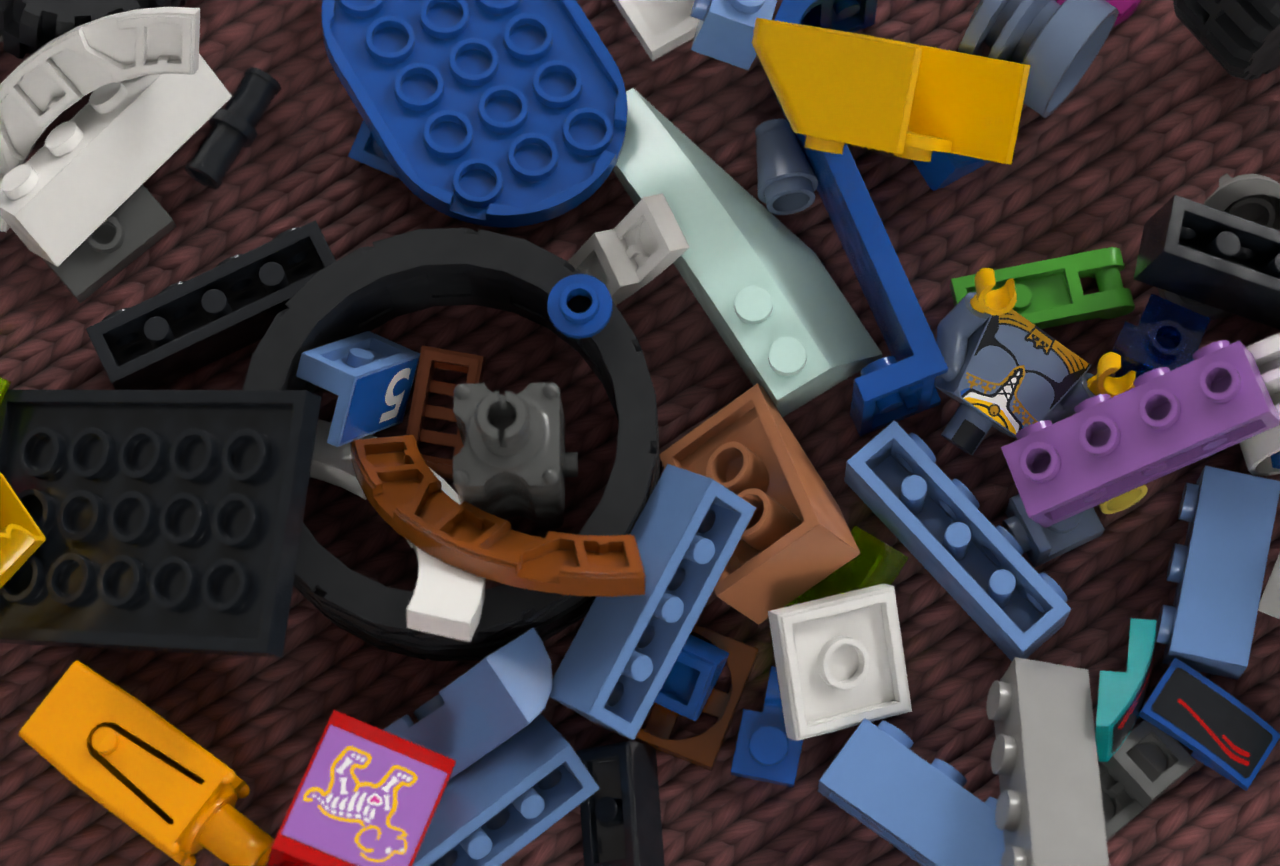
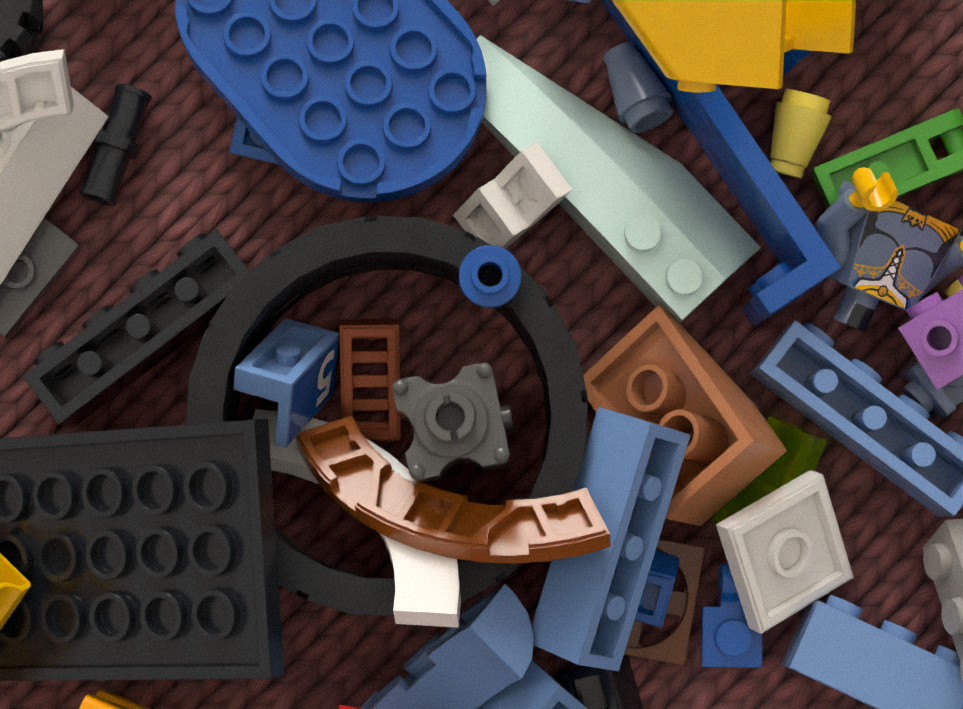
camera: 20 degrees left, 10 degrees up
(943, 240) = (797, 131): none -> light yellow cone

